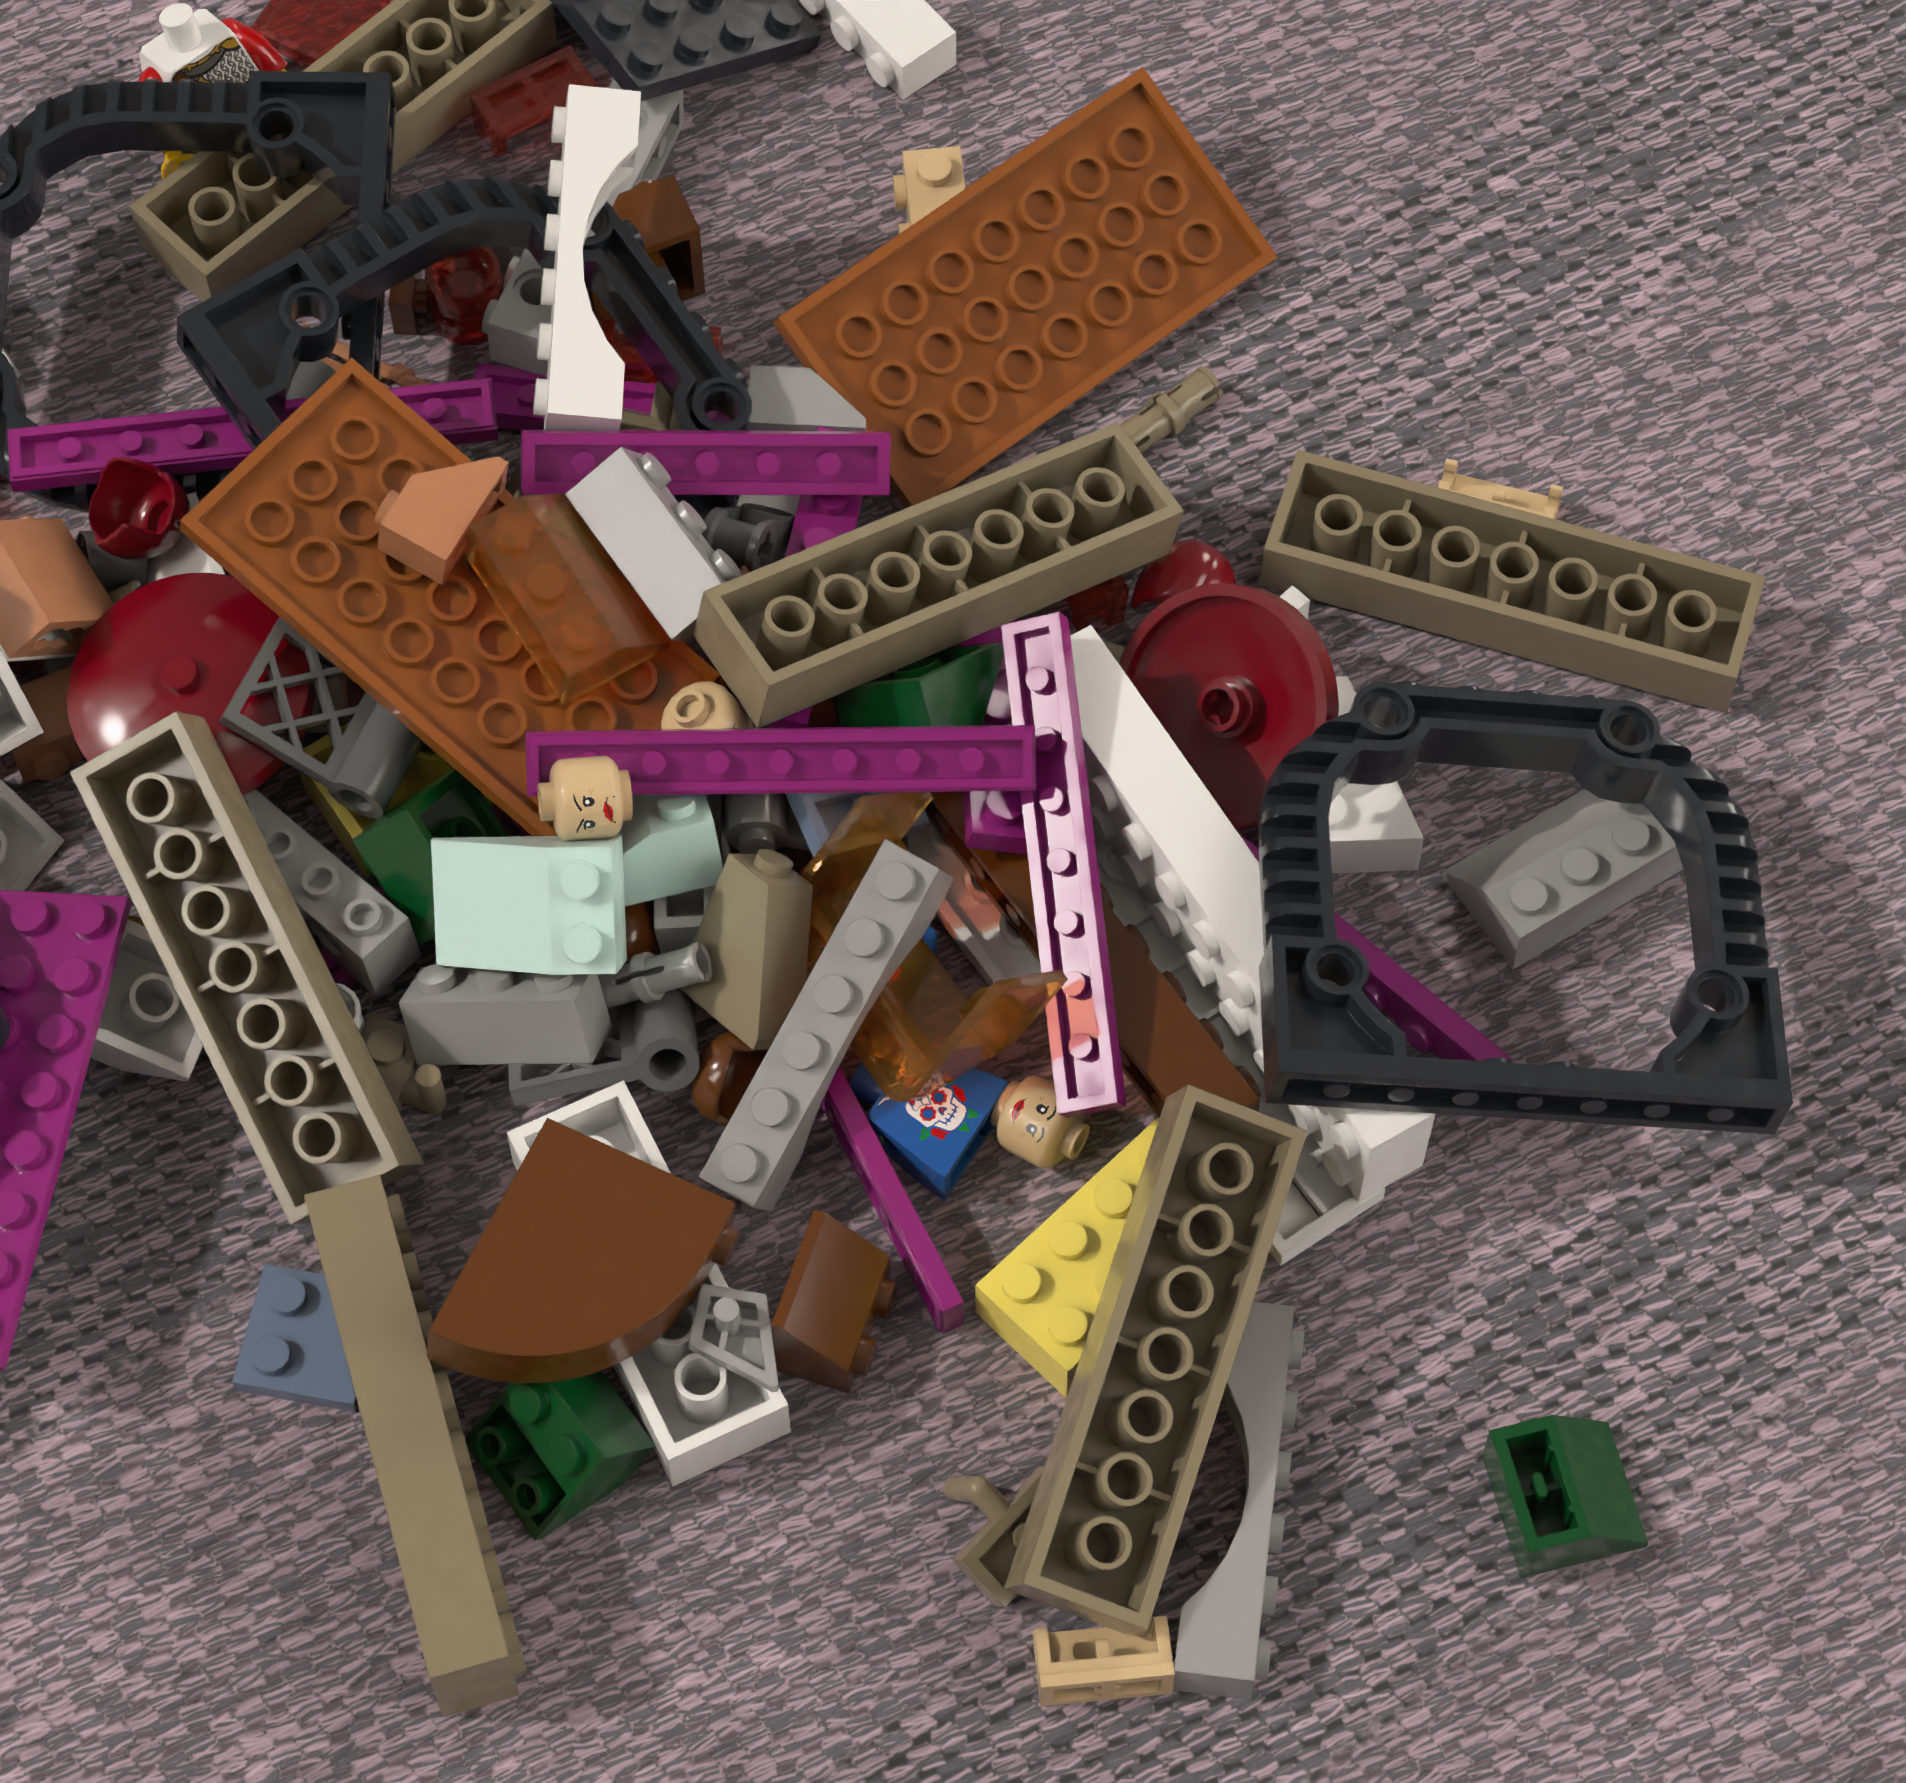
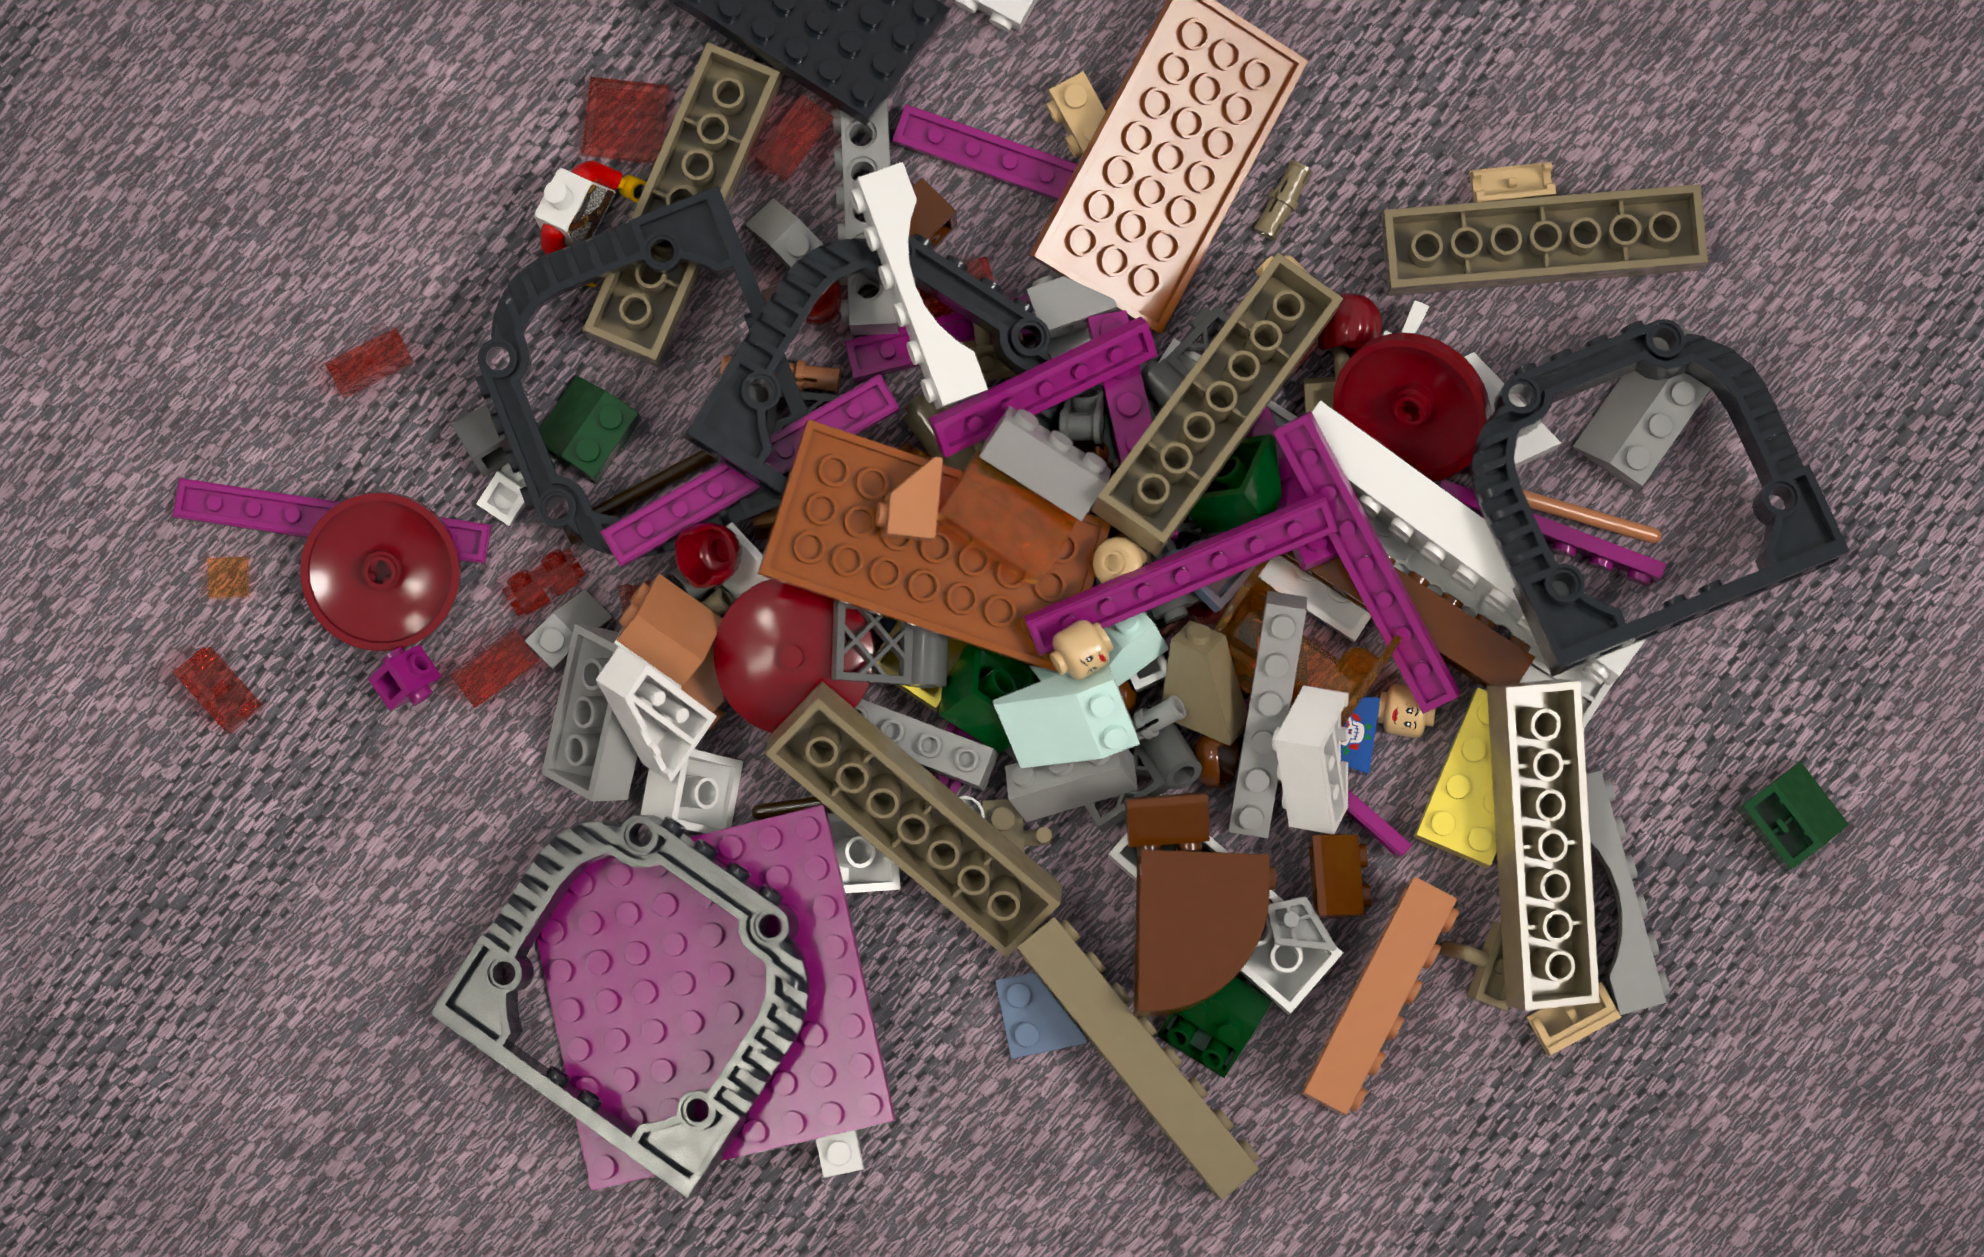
camera: 20 degrees left, 20 degrees up
(83, 352) = (588, 428): none -> dark green slope
(610, 1092) = (1167, 820): none -> reddish brown slope
(767, 201) = (983, 152): none -> magenta plate
(814, 1498) = (1379, 996): none -> nougat brick
(858, 1107) = (1311, 761): none -> white wedge
(1426, 962) = (1592, 517): none -> nougat bar

